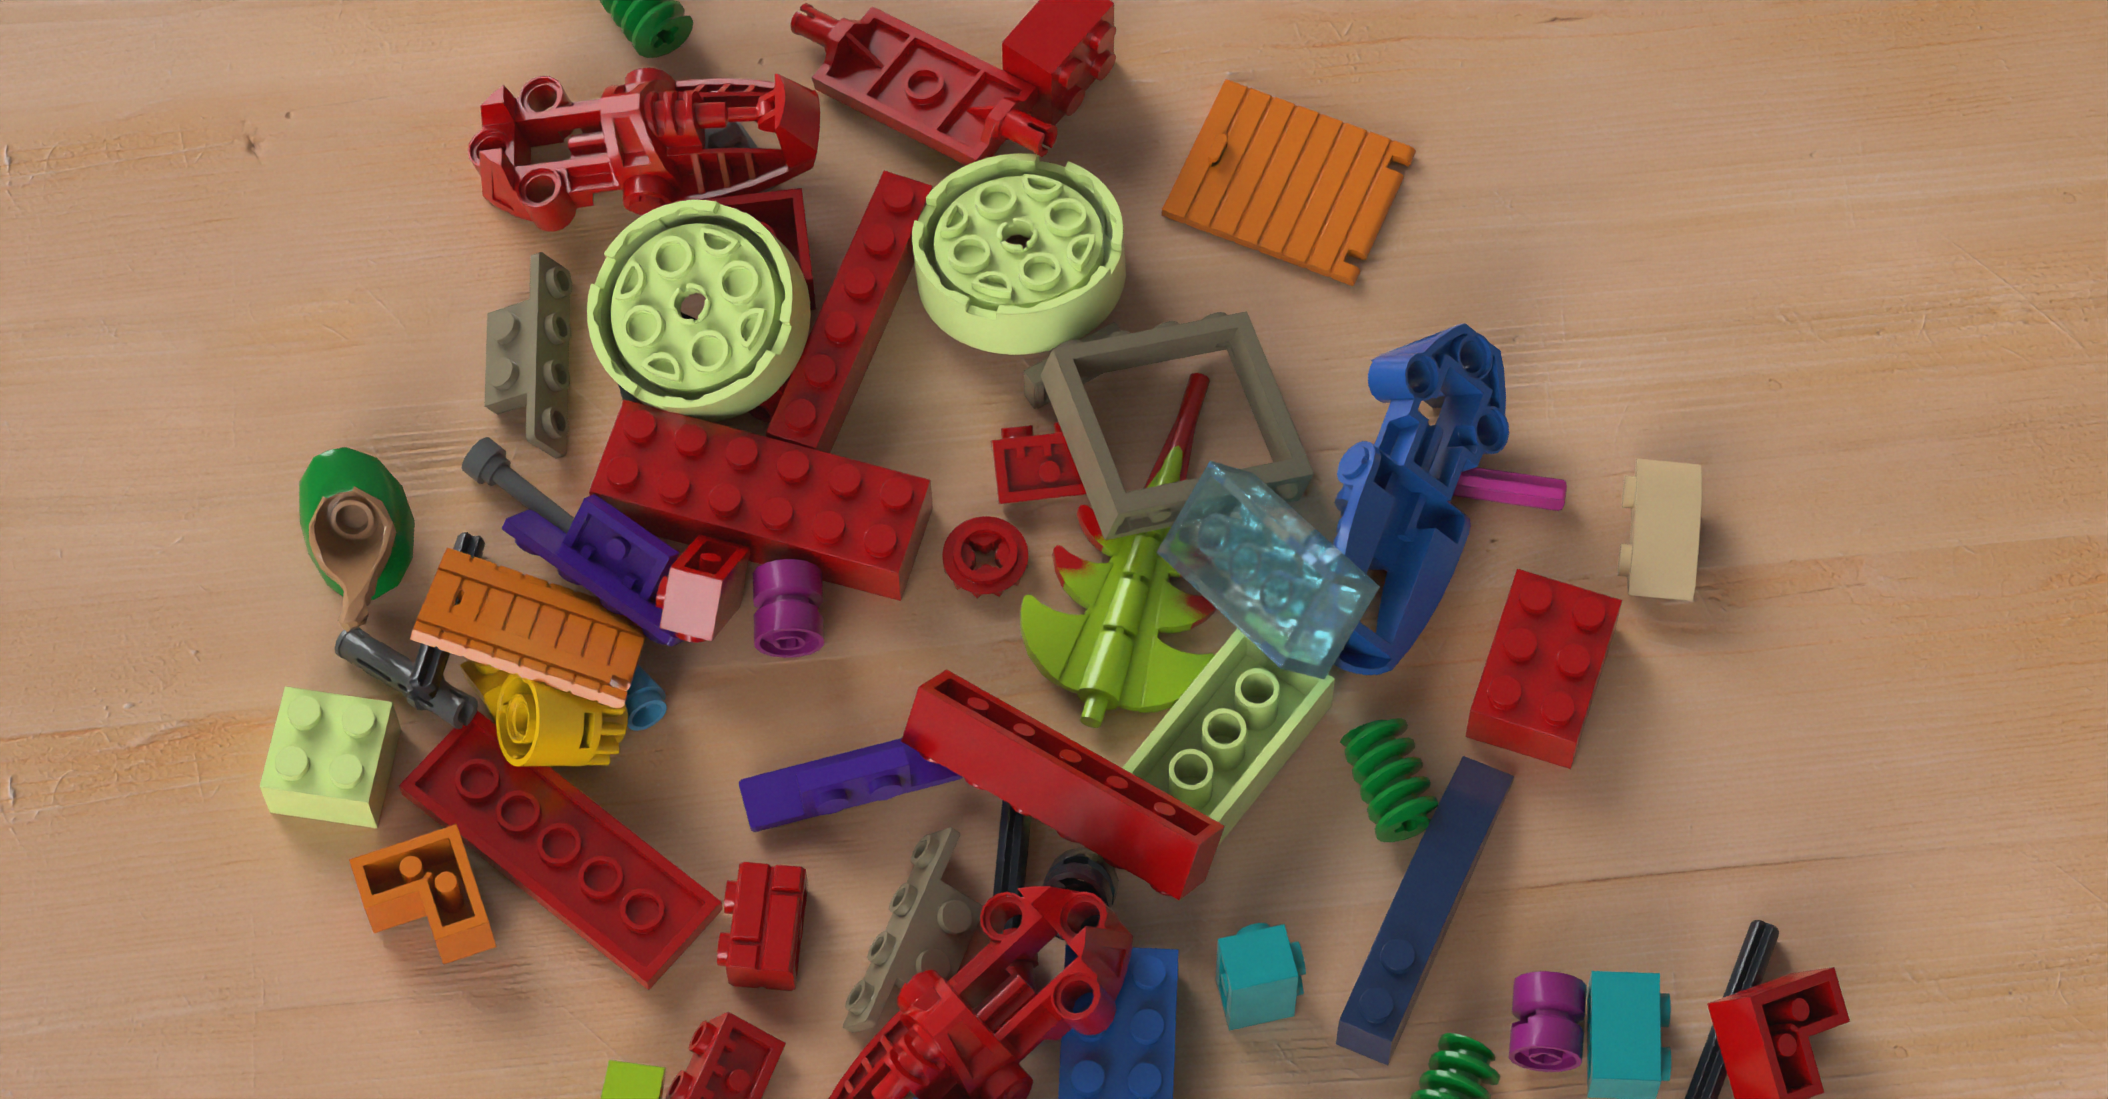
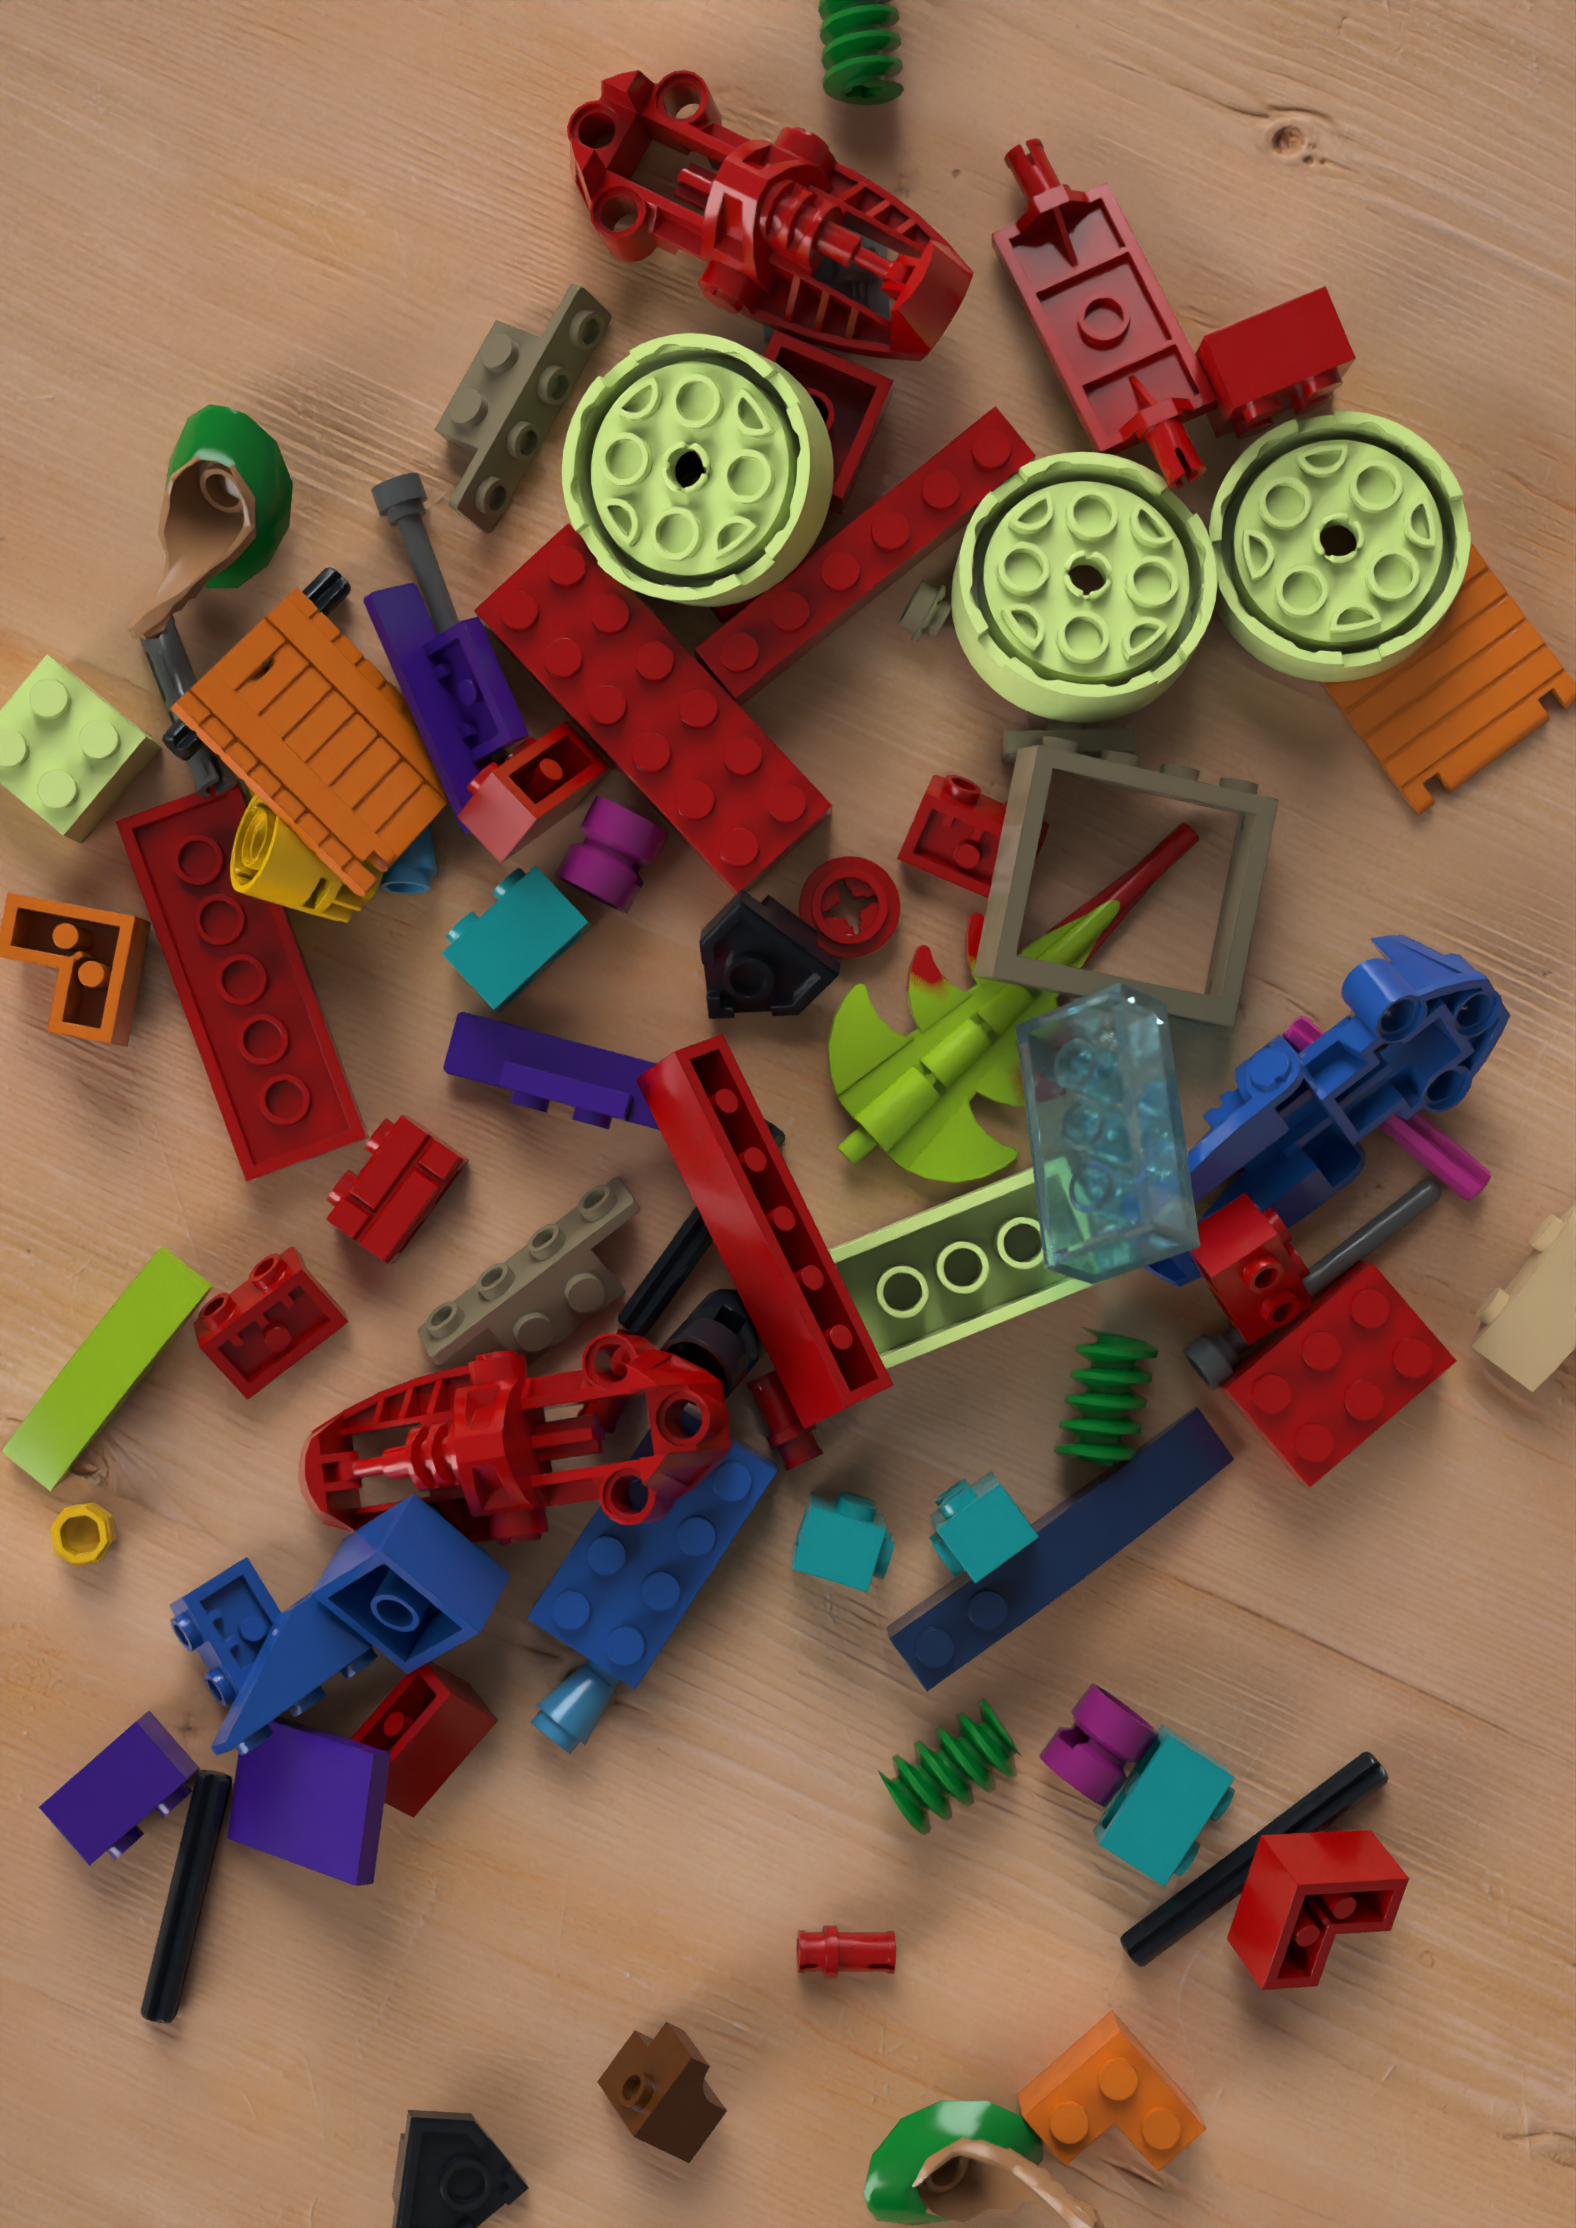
camera: 30 degrees right, 25 degrees up
(751, 700) = (514, 937): none -> teal brick
(916, 336) = (925, 611): none -> dark tan plate
(943, 619) = (762, 960): none -> black plate
(1162, 928) = (787, 1433): none -> red pin
(1216, 171) = (1346, 612): none -> yellowish green brick
(1353, 905) = (978, 1527): none -> teal brick
(1431, 621) = (1251, 1268): none -> red brick
(1451, 709) = (1219, 1353): none -> dark grey piece

